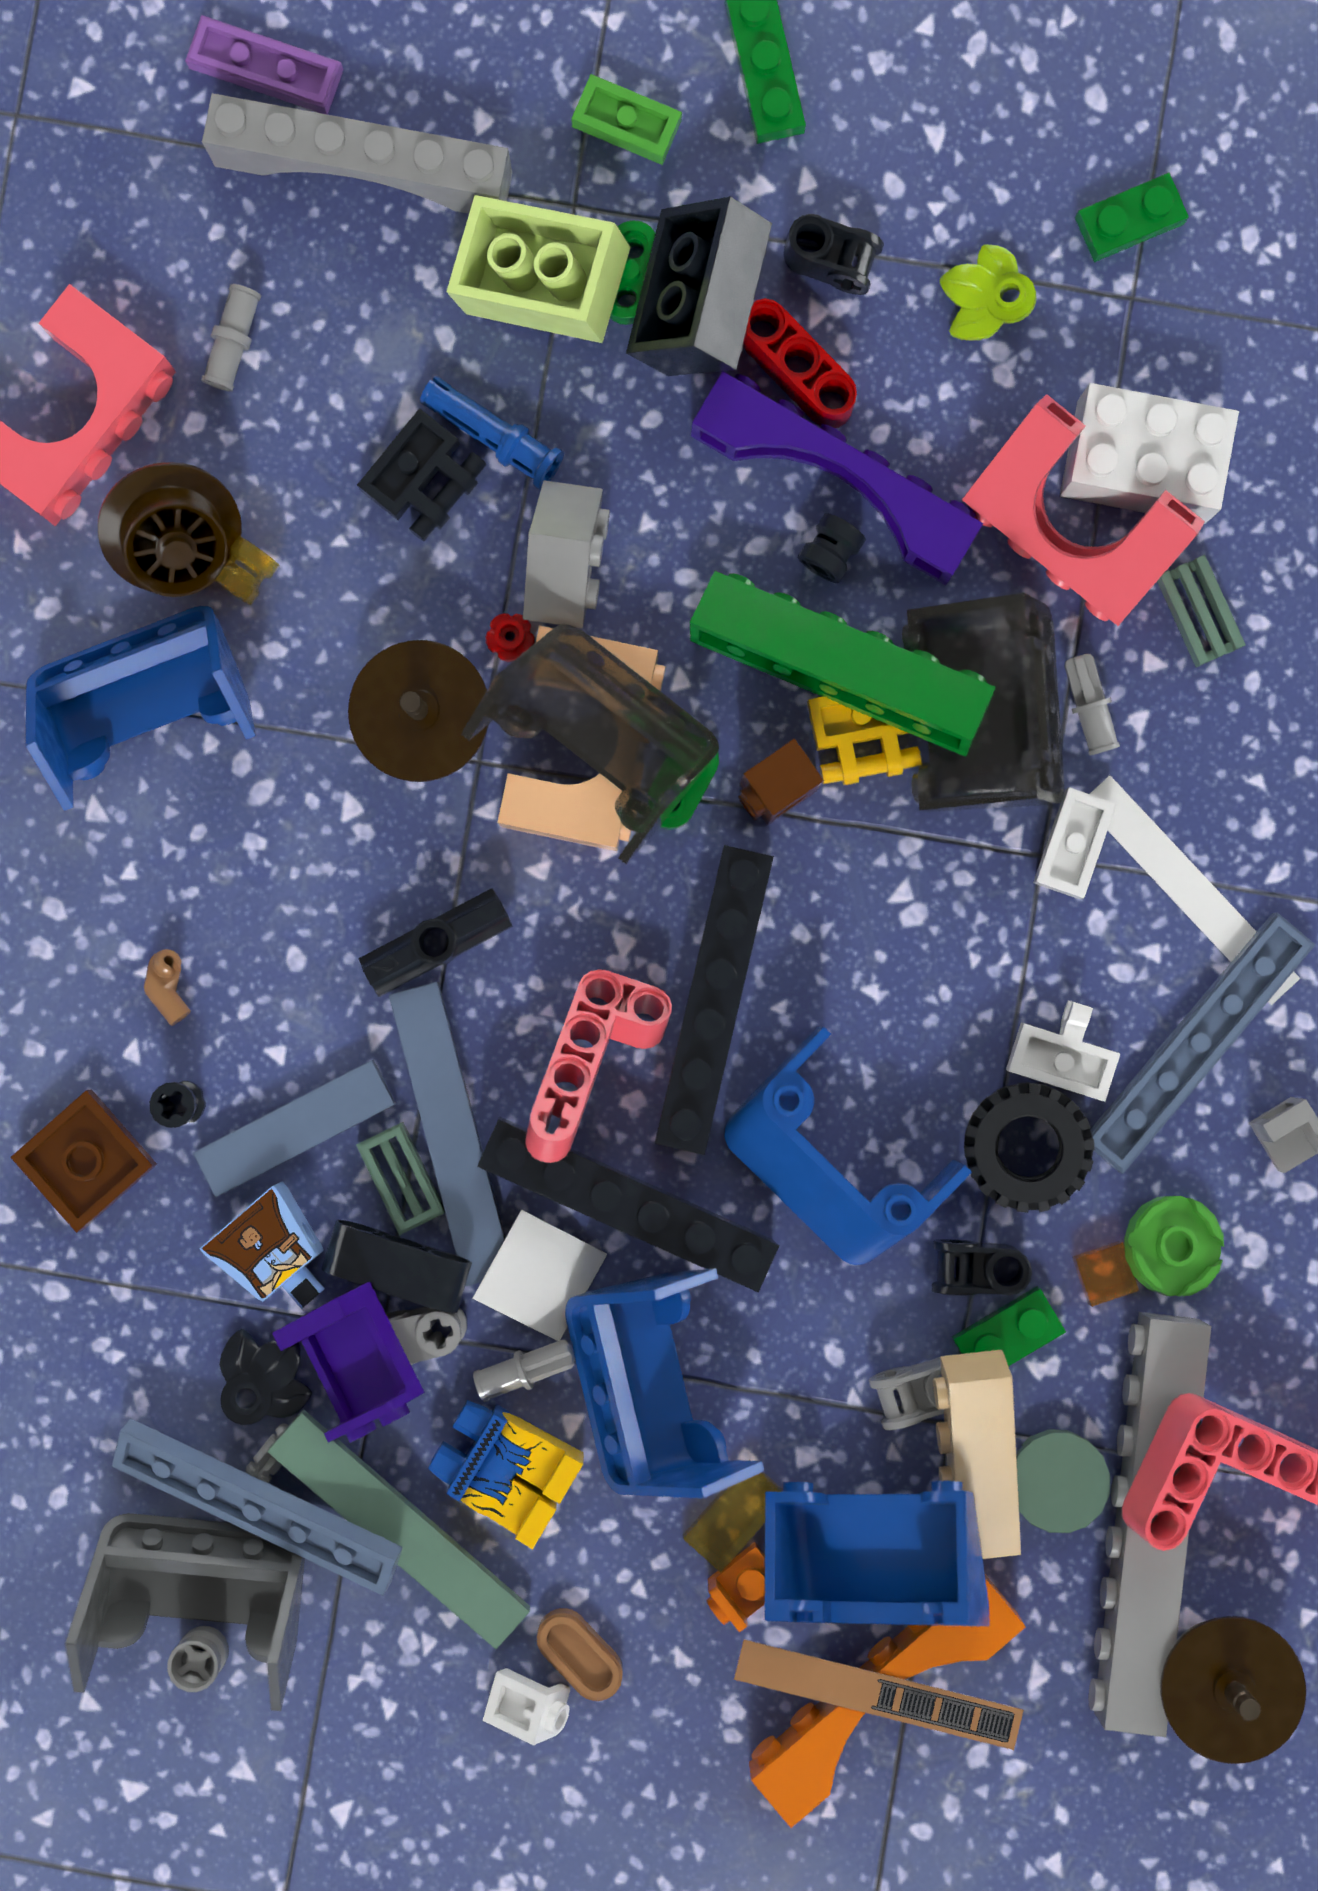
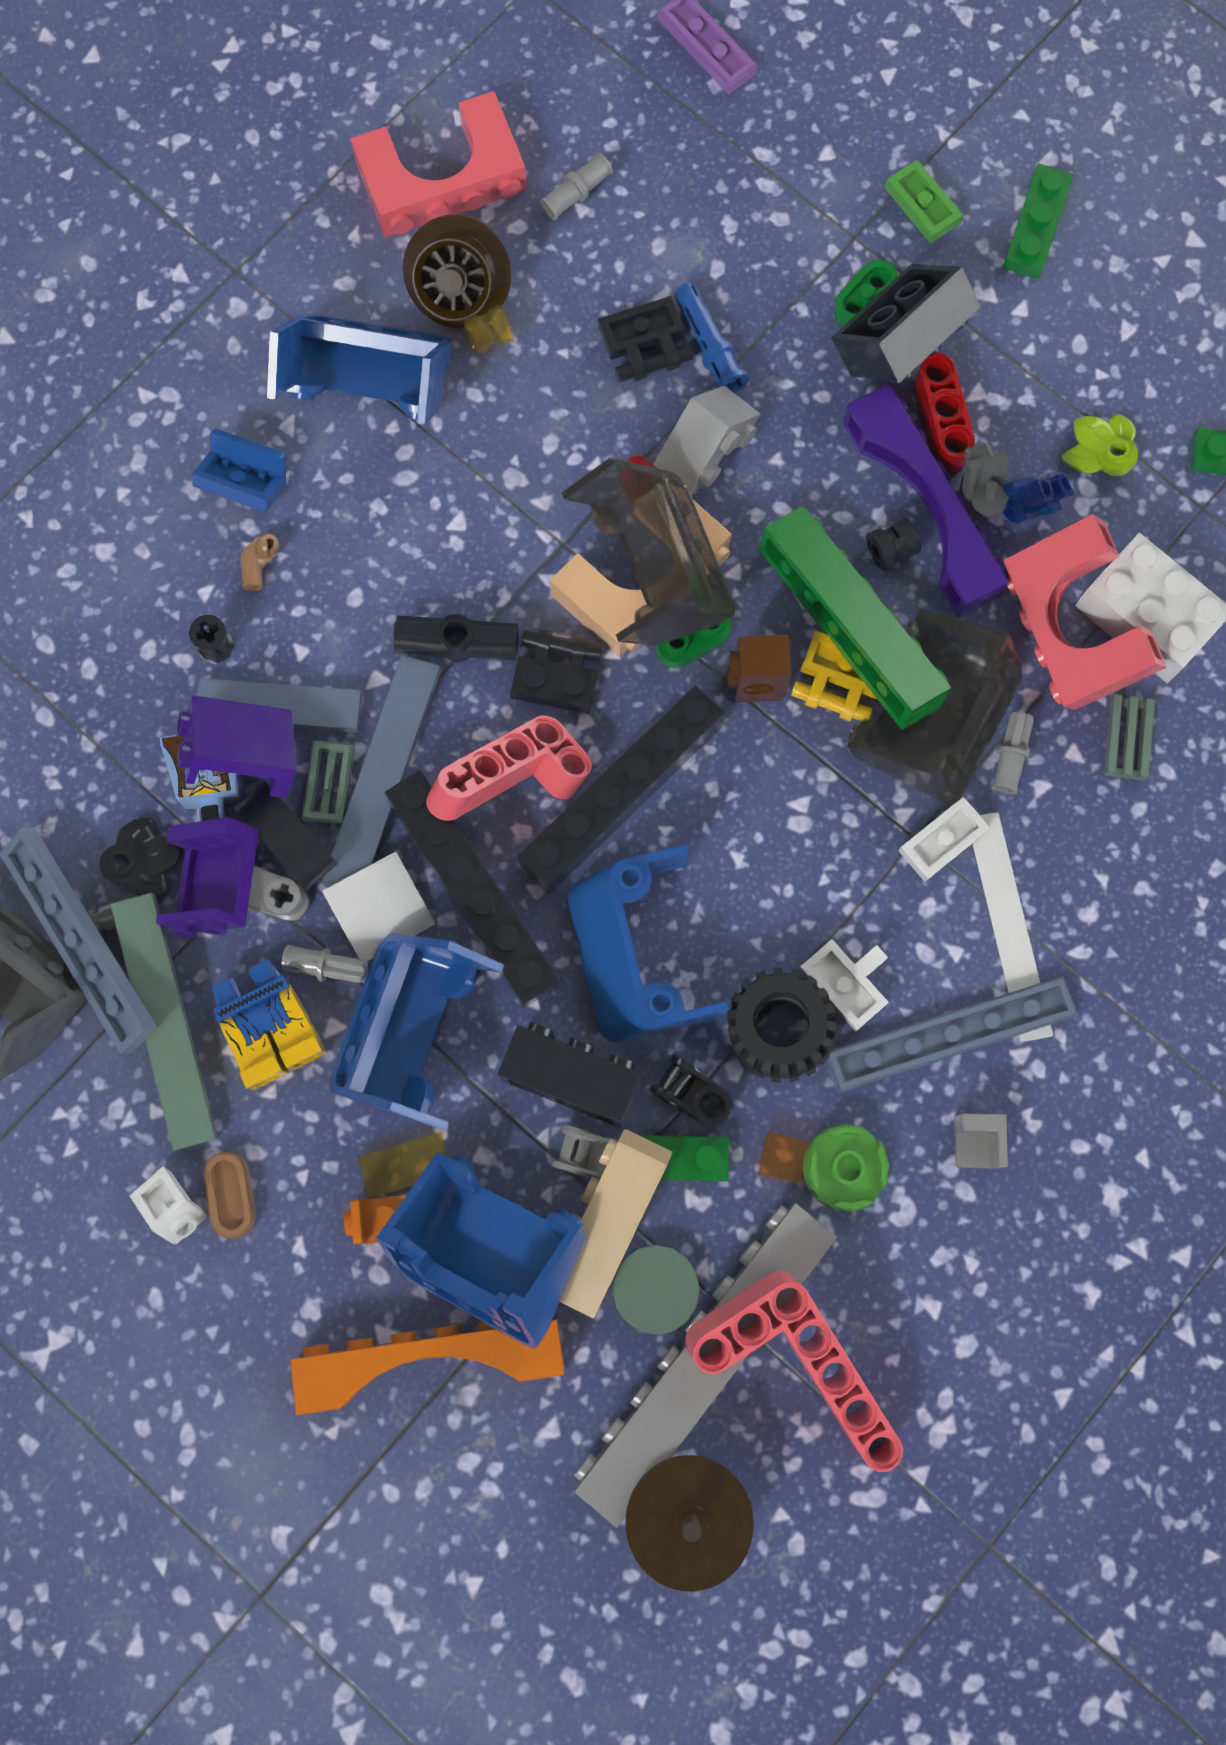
camera: 30 degrees right, 10 degrees down
(83, 1160) = (123, 639): reddish brown plate -> none
(84, 900) = (241, 471): none -> blue bracket
(284, 140) = (685, 83): light grey arch -> none
(288, 1207) = (238, 741): none -> dark purple panel
(413, 708) = (532, 473): dark brown piece -> none
(538, 268) = (806, 251): yellowish green brick -> none
(566, 924) = (555, 683): none -> black plate
(836, 254) = (1012, 360): black piece -> none
(851, 1333) = (569, 1074): none -> black brick
(878, 1694) = (425, 1356): medium nougat sticker -> none
(892, 423) = (984, 480): none -> dark grey hips
(953, 404) = (1036, 496): none -> clear blue hips

